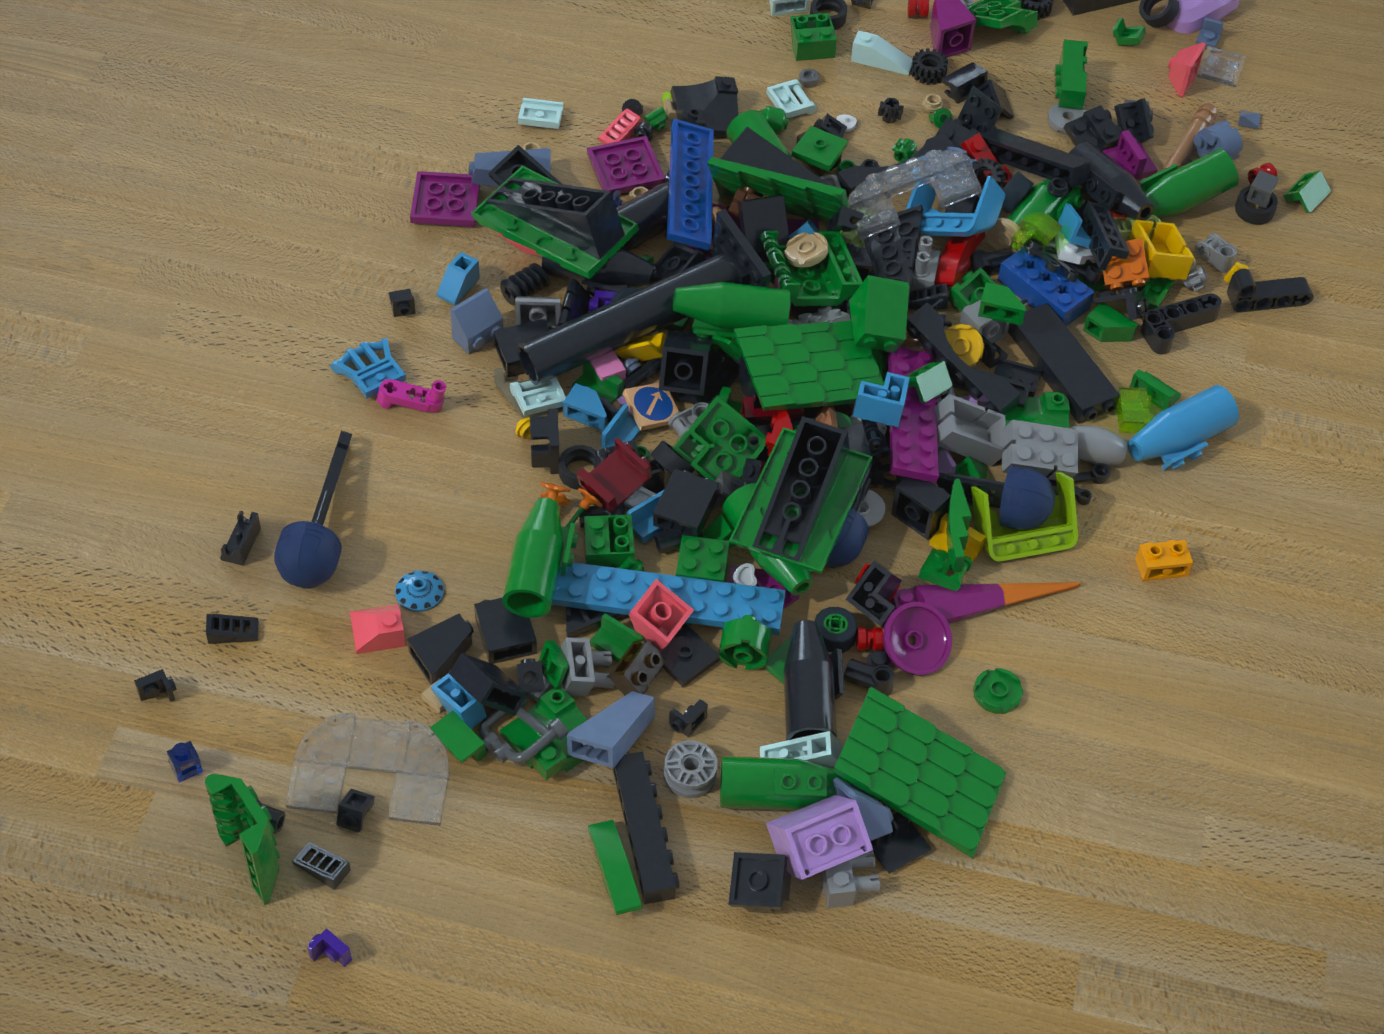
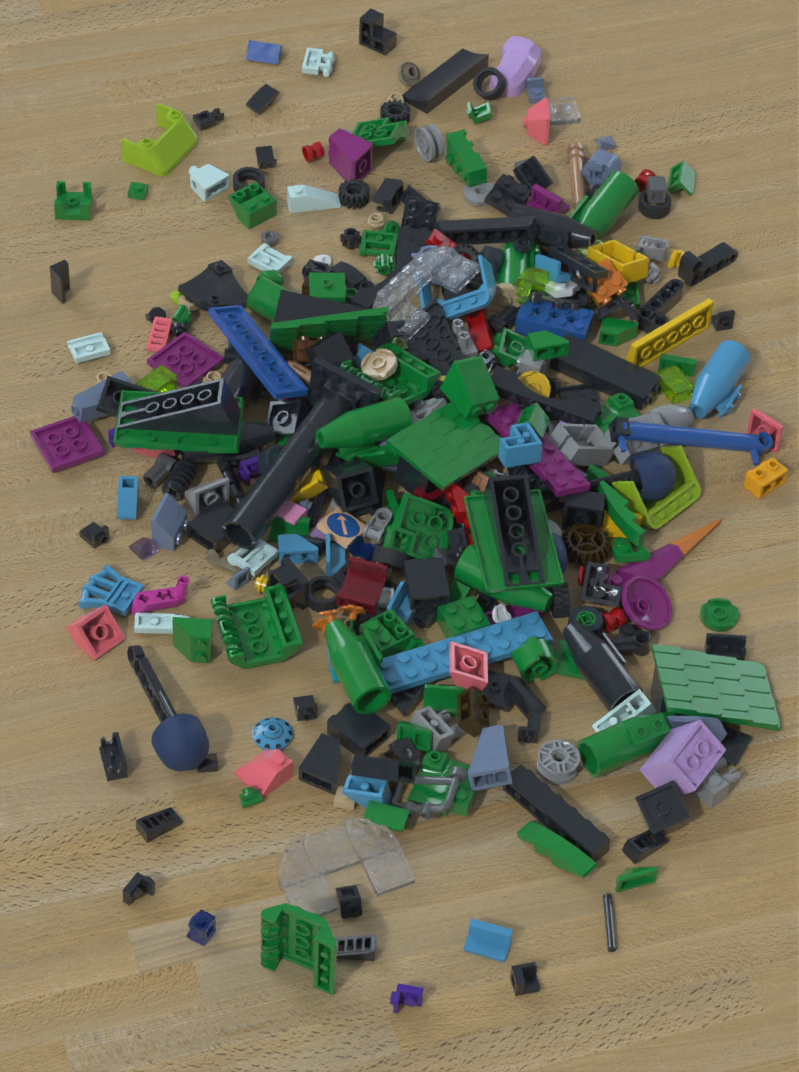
camera: 30 degrees left, 5 degrees down
(324, 402) = (96, 632): none -> coral slope
(330, 590) = (209, 764): none -> black slope
(342, 646) = (250, 797): none -> green plate
(394, 422) = (154, 623): none -> light aqua hinge
(411, 453) = (193, 638): none -> green slope
(440, 338) = (144, 548): none -> clear purple slope
(465, 932) = (488, 940): none -> dark azure panel
(471, 579) = (305, 708): none -> black bracket
(471, 996) = (524, 978): none -> black panel
(478, 472) = (258, 629): none -> green slope
(508, 412) = (239, 579): none -> sand blue slope
(509, 266) = (162, 467): none -> dark grey piece
(560, 33) = (60, 280): none -> black panel
(578, 173) = (159, 380): none -> clear neon green brick
(613, 981) = (609, 922): none -> black bar
(653, 434) = (362, 549): none -> clear blue bracket
(677, 943) = (635, 877): none -> green slope
(703, 916) = (647, 846): none -> black slope
(707, 679) = (523, 697): none -> black panel
(737, 557) = (486, 603): none -> black plate
(822, 589) = (561, 602): none -> black tyre
(860, 146) = (352, 276): none -> black slope
(897, 548) = (590, 544): none -> dark brown gear
(916, 122) = (380, 240): none -> green plate
(974, 731) = (725, 645): none -> black hinge
(1014, 432) = (623, 429): none -> blue piece
(1045, 43) = (429, 142): none -> light grey wheel
(1165, 353) = (671, 334): none -> yellow arch
(1200, 503) = (762, 422): none -> coral slope
(1242, 364) = (724, 320): none -> black bracket

